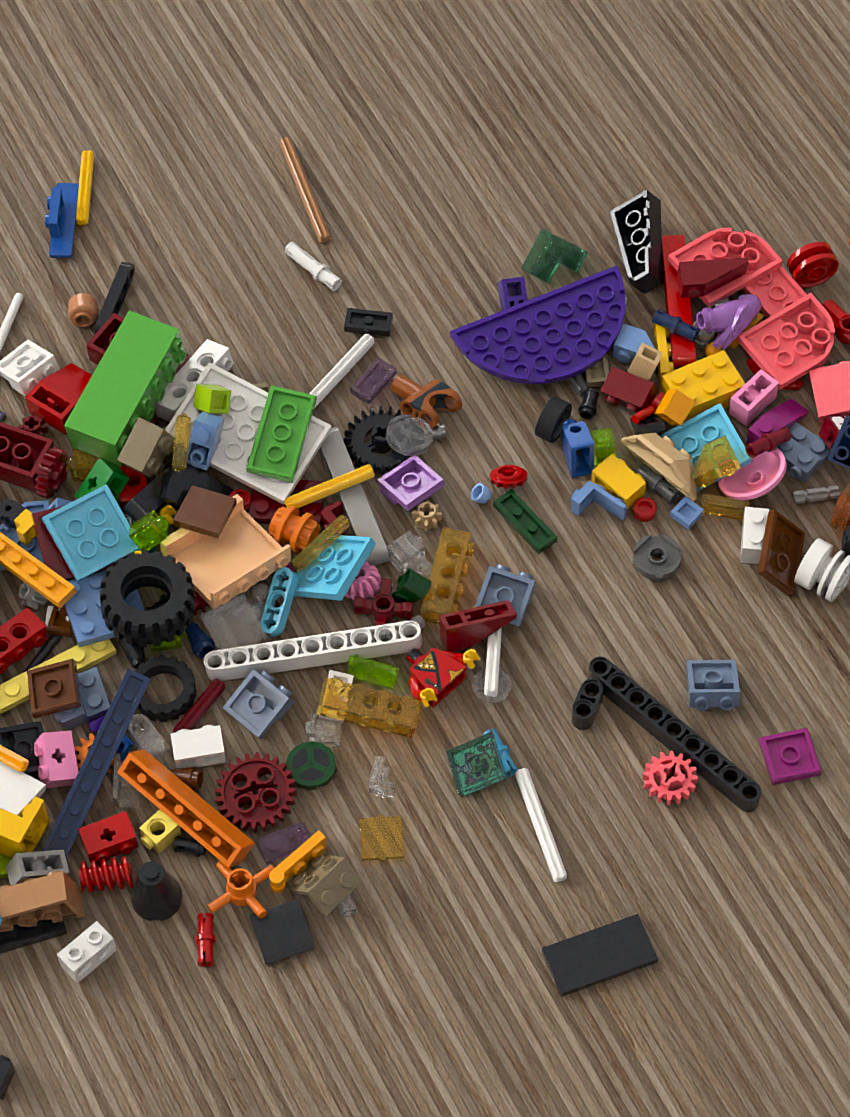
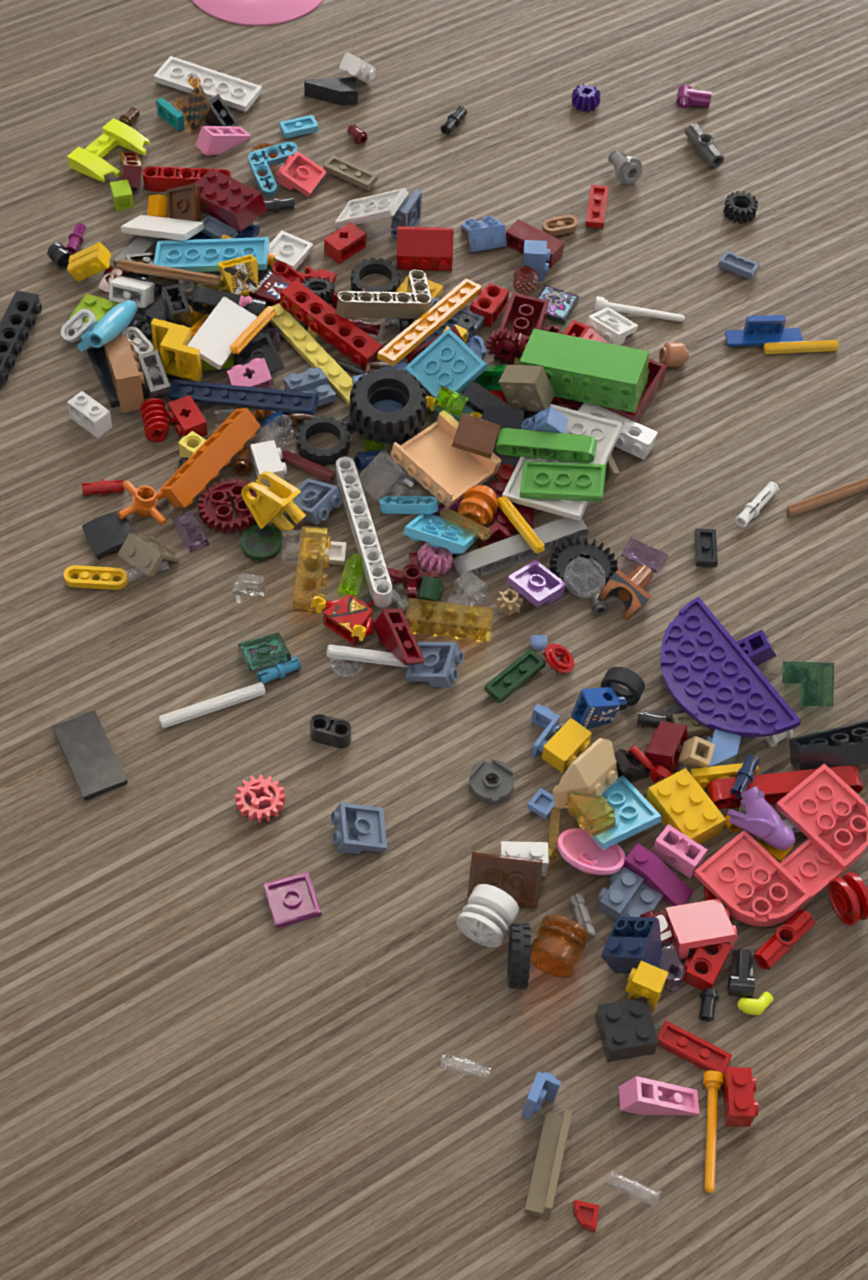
camera: 80 degrees right, 5 degrees down
(53, 688) = (309, 366): reddish brown tile -> none
(116, 293) = (690, 372): black beam -> none
(155, 893) = (140, 448): black cone -> none
(181, 442) = (531, 409): clear yellow axle -> none
(212, 398) = (584, 425): lime panel -> none
(231, 441) = (546, 445): none -> bright green beam
(272, 732) = (273, 501): none -> yellow piece
(297, 861) = (170, 537): light orange plate -> none
(342, 367) = (646, 530): white axle -> none
(348, 937) = (108, 577): none -> yellow plate
(381, 838) = (197, 596): clear yellow piece -> none
(603, 444) = (603, 726): clear neon green brick -> none
(644, 509) = (544, 771): red tile -> none
(674, 407) = (648, 778): light orange panel -> none
(678, 744) = (302, 809): black beam -> none
(706, 276) = (800, 791): dark red slope -> none
(768, 442) = (620, 856): dark red pin -> none

